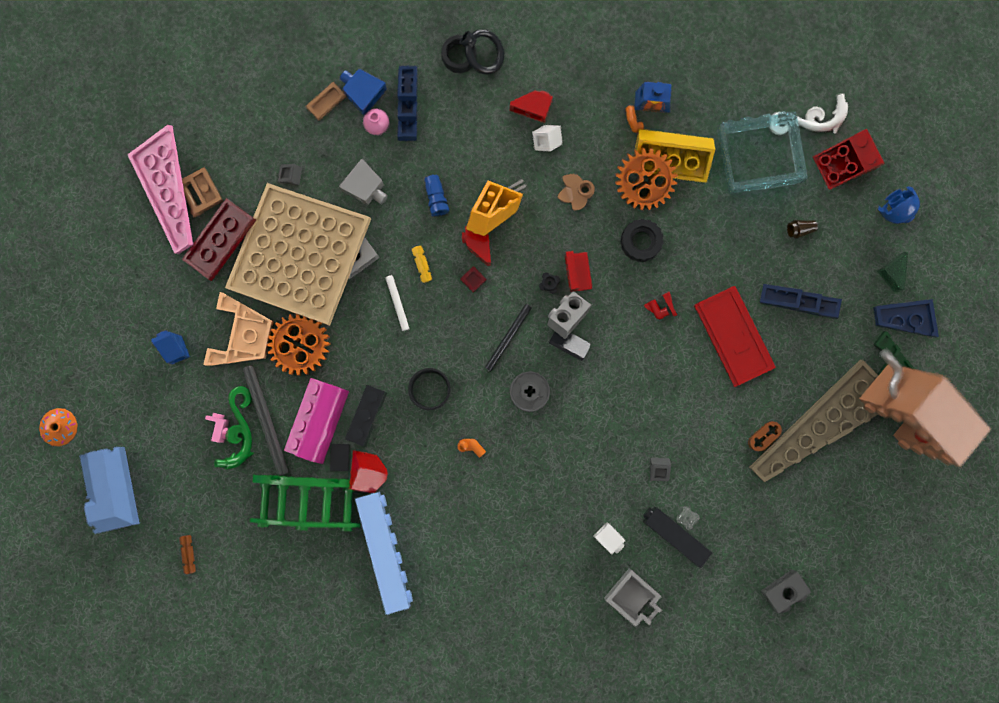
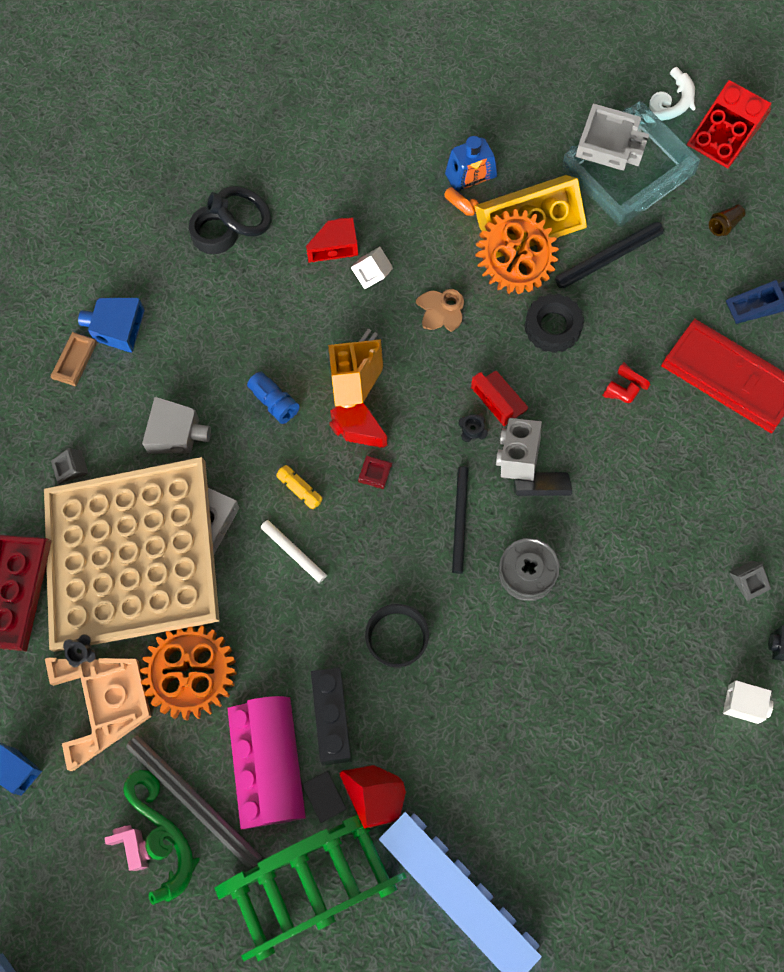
camera: 25 degrees left, 15 degrees down
(236, 299) = (72, 655): none -> black plate
(376, 121) = (150, 351): bright pink brick -> none
(407, 103) = (179, 312): dark blue slope -> none
(471, 445) = (493, 680): orange arm -> none
(708, 211) = (609, 255): none -> black axle
(756, 131) = (612, 138): none -> light grey piece

